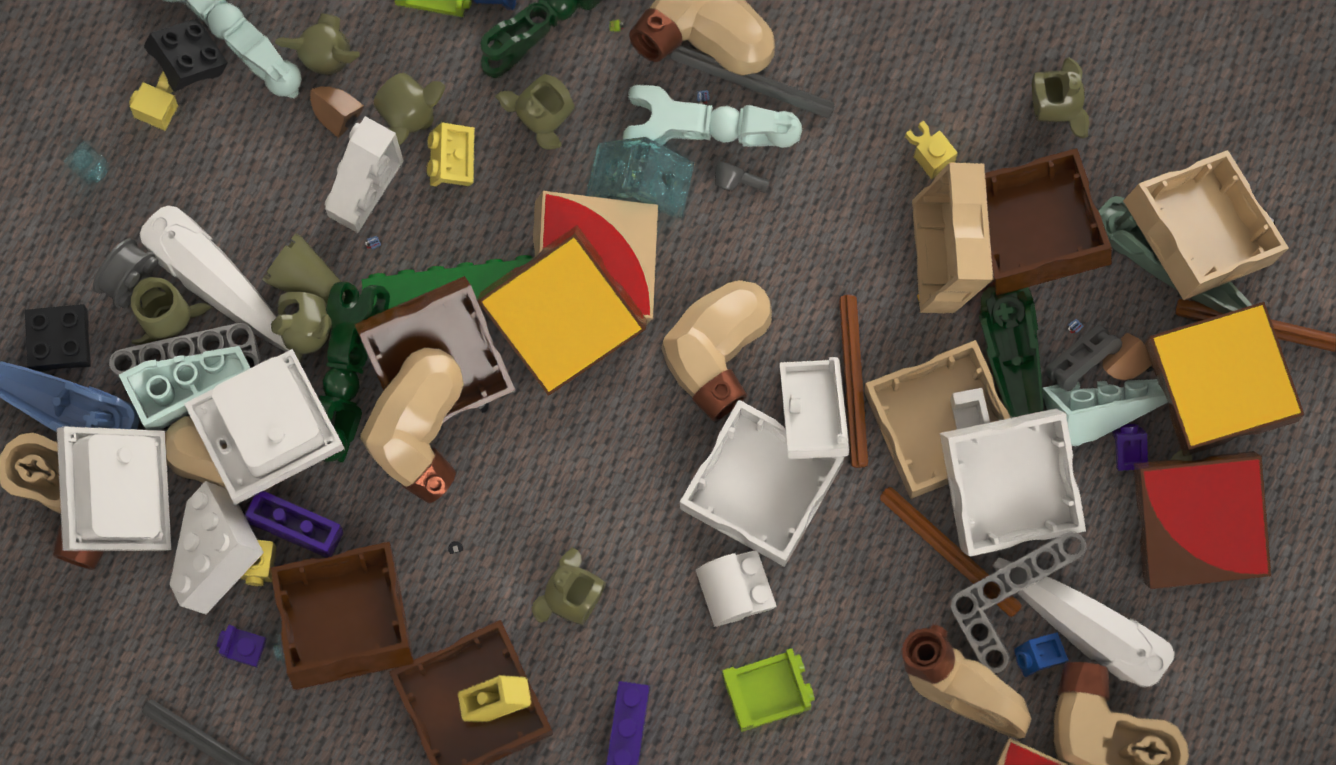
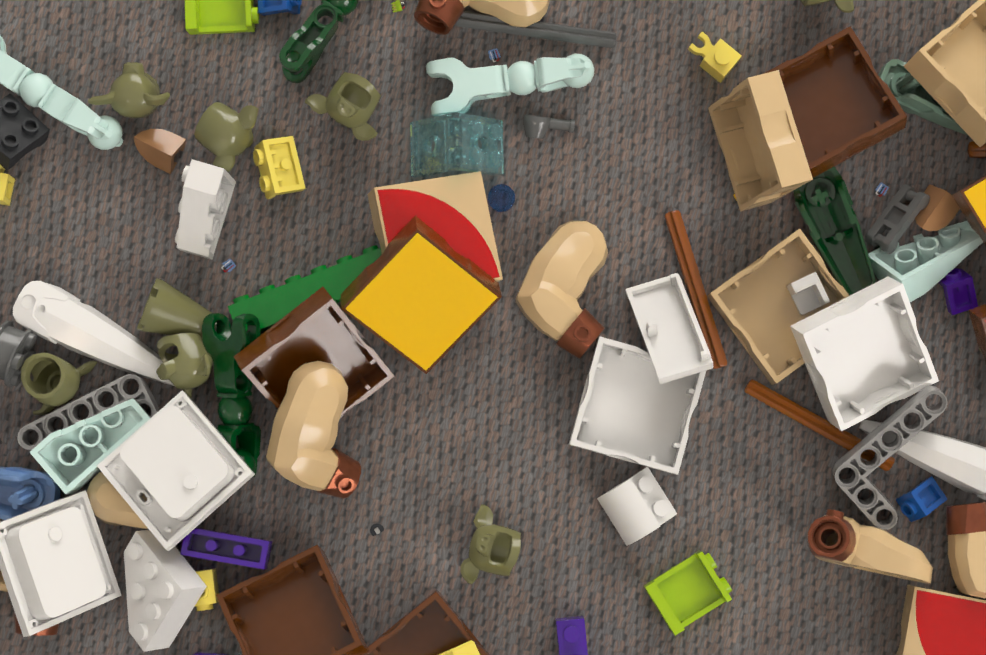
camera: 15 degrees left, 10 degrees up
(673, 241) = (501, 198): none -> clear blue tile

